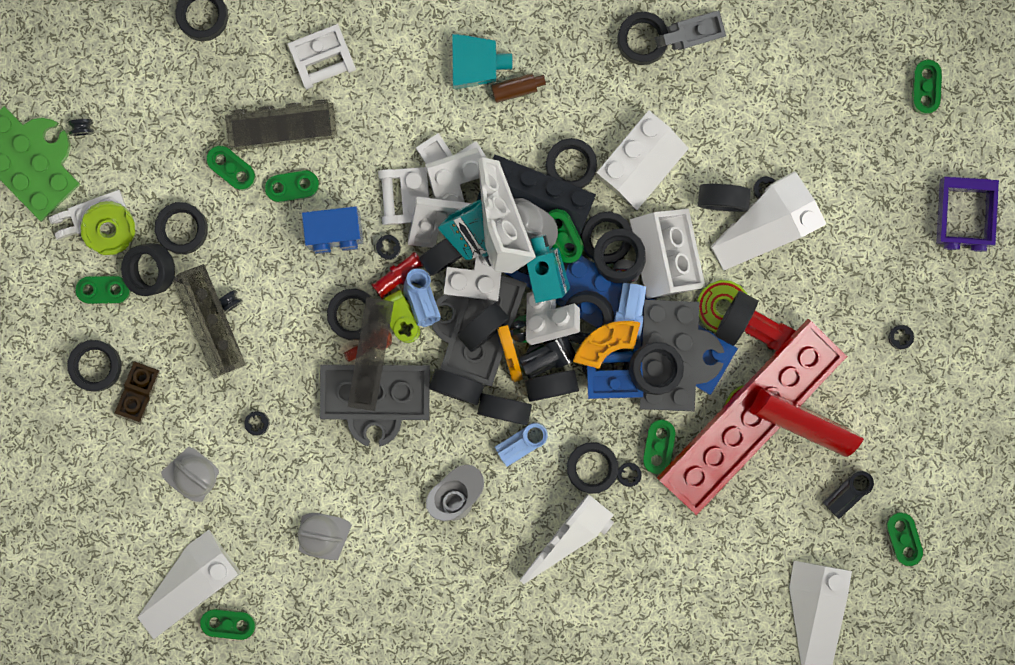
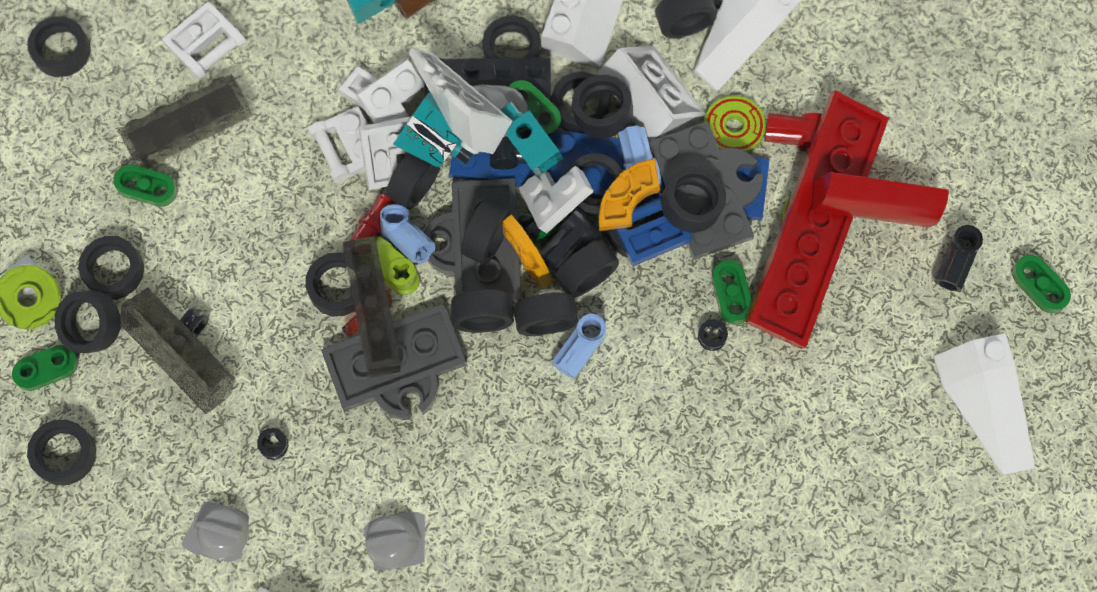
camera: 20 degrees left, 15 degrees down
(137, 392) = (122, 464): dark brown slope -> none
(291, 186) = (220, 181): green plate -> none
(332, 229) = (280, 198): blue brick -> none
(379, 246) = (349, 212): black bush -> none
(455, 494) = (529, 427): light grey piece -> none
(477, 283) = (458, 197): white plate -> none
(579, 528) = (686, 408): white wedge -> none
(612, 466) = (686, 325): black tyre -> none
(736, 318) = (755, 120): black tyre -> none
(907, 331) = (936, 76): black bush -> none

